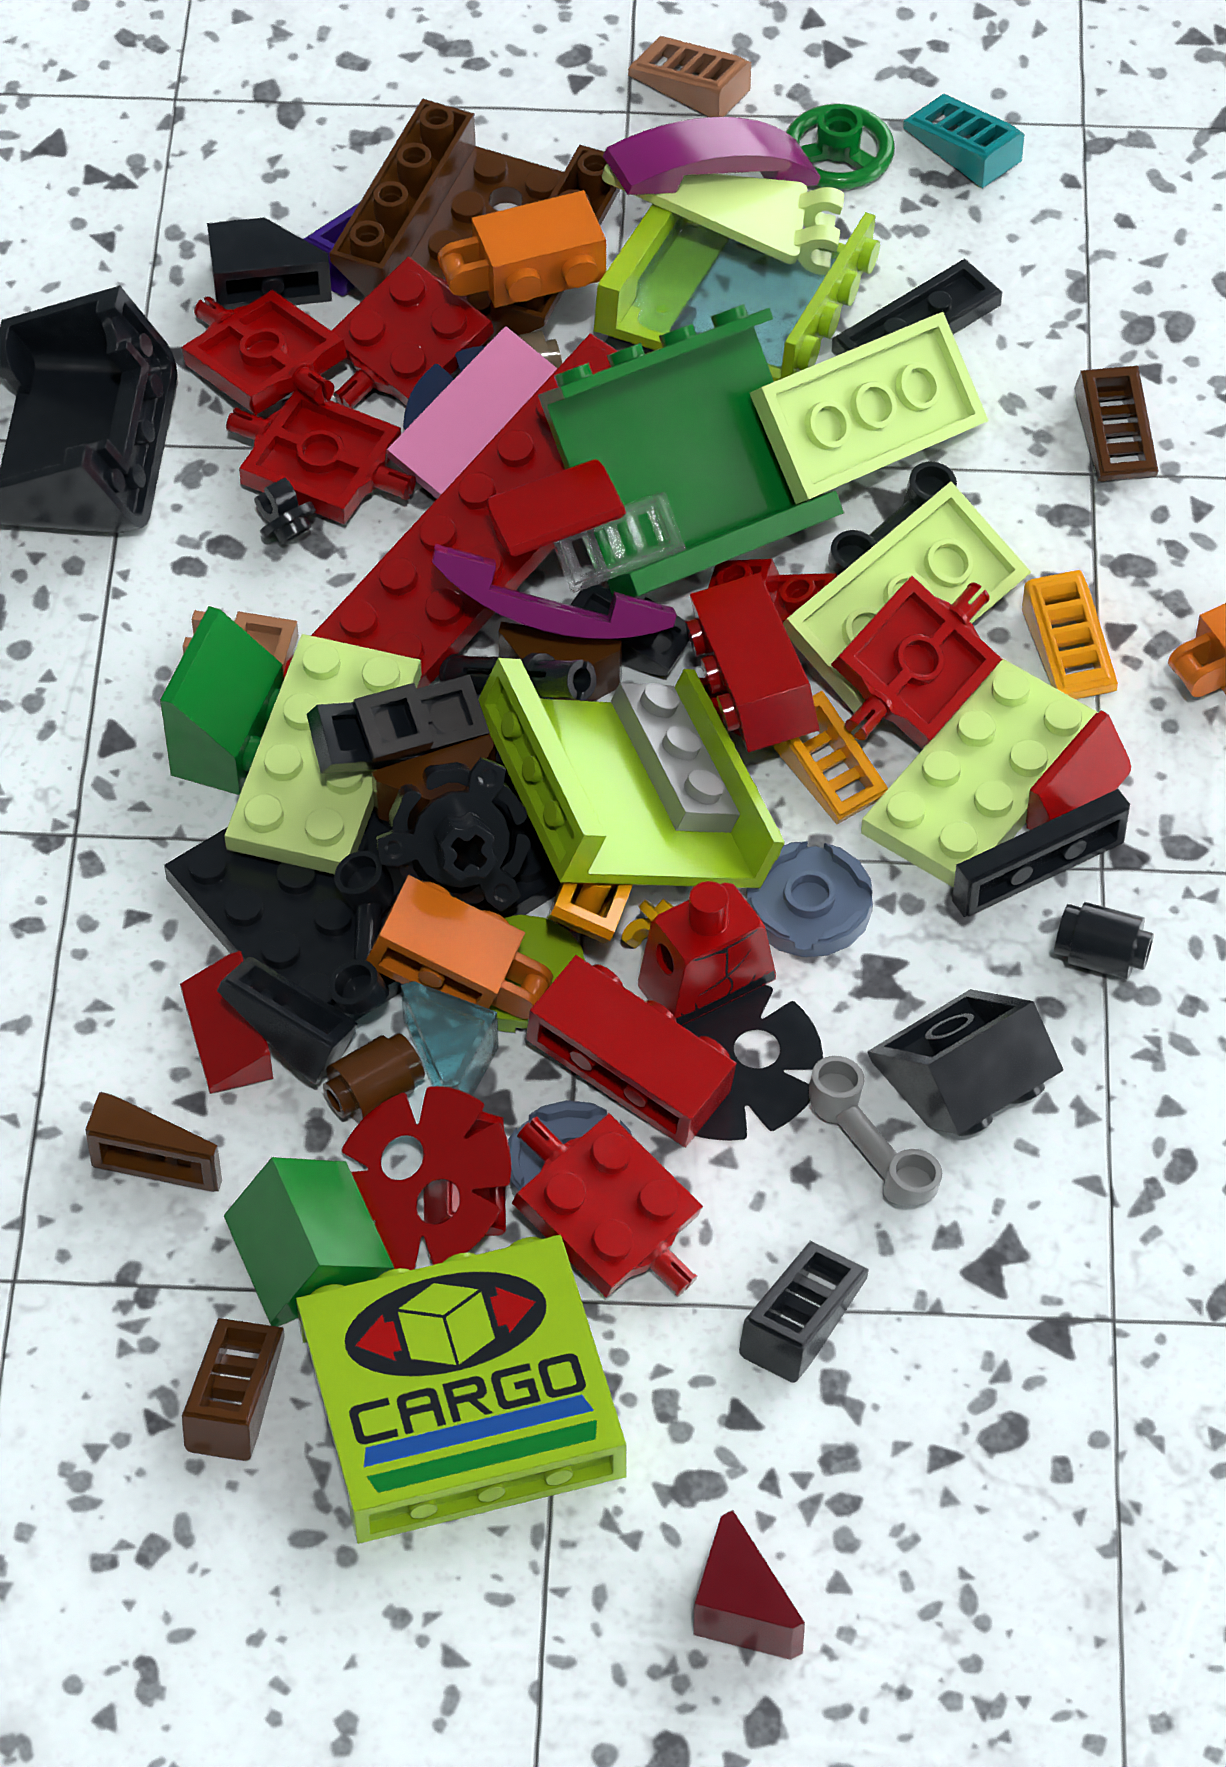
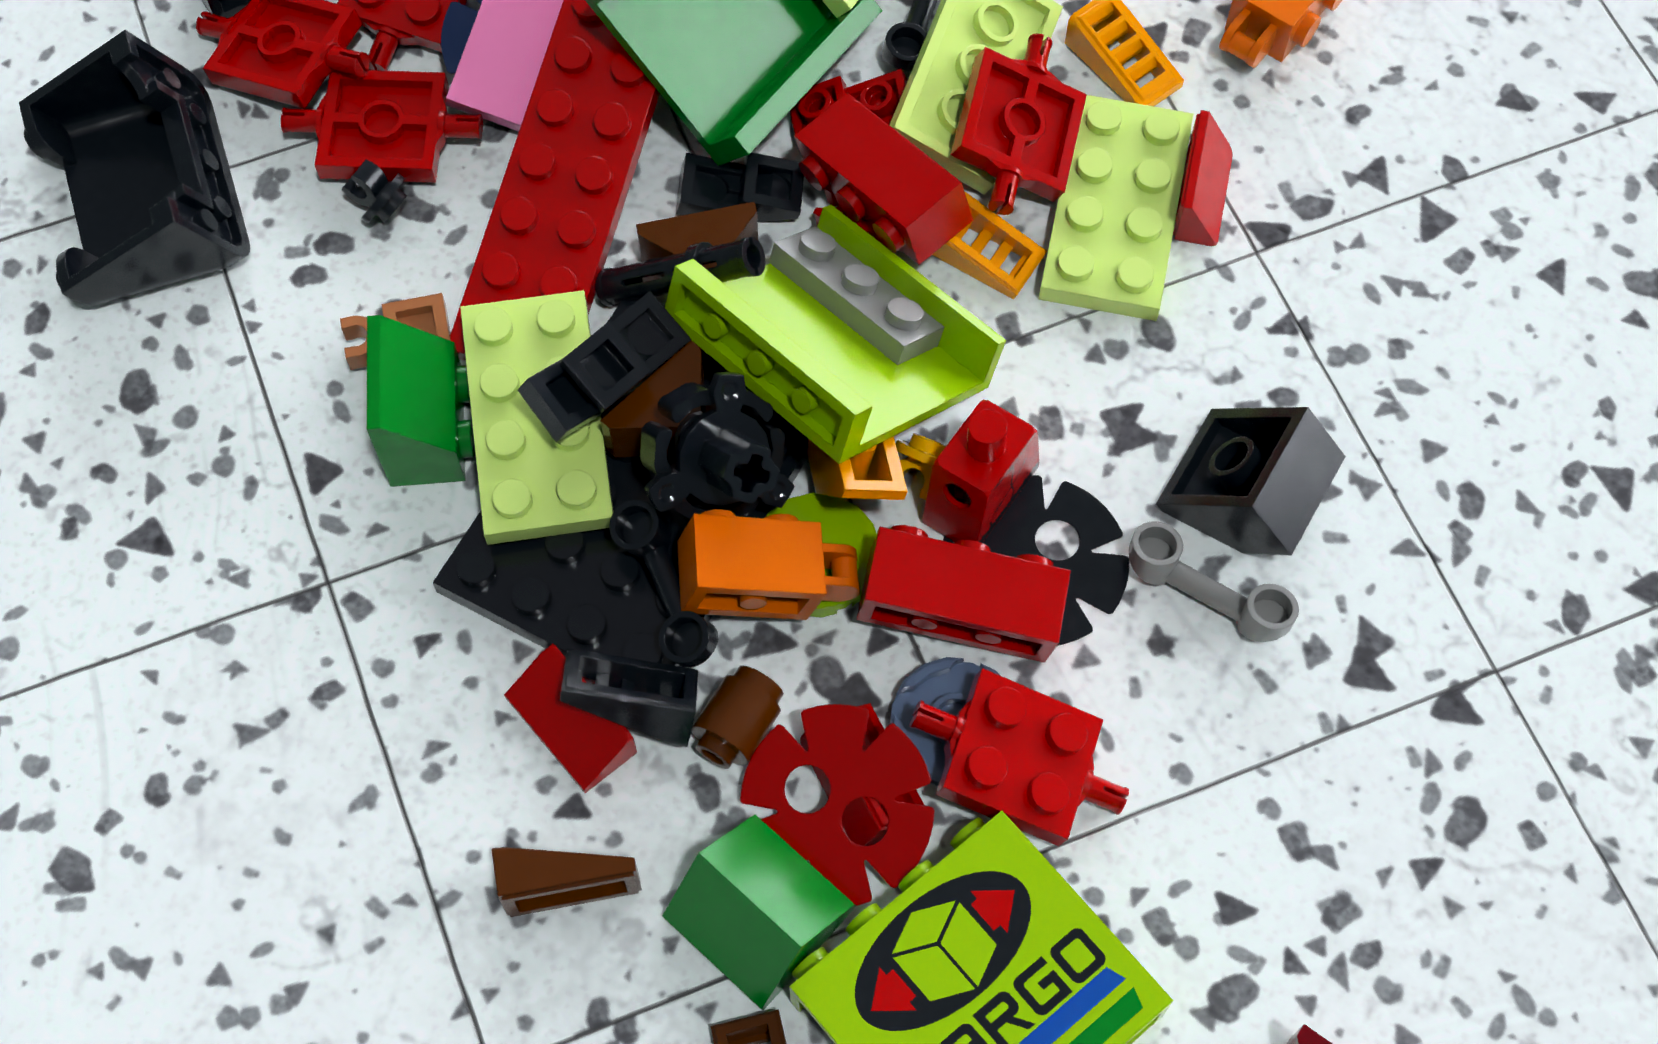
camera: 25 degrees left, 10 degrees up
(450, 1036) = (787, 648): clear light blue slope -> none
(554, 507) = (644, 100): red slope -> none
(626, 616) = (746, 182): magenta slope -> none
(664, 527) = (749, 96): clear slope -> none
(783, 1345) = (1231, 821): black slope -> none
(813, 900) = (1040, 377): sand blue tile -> none
(1040, 853) = (1211, 260): black tile -> none
(1103, 939) = (1306, 319): black brick -> none

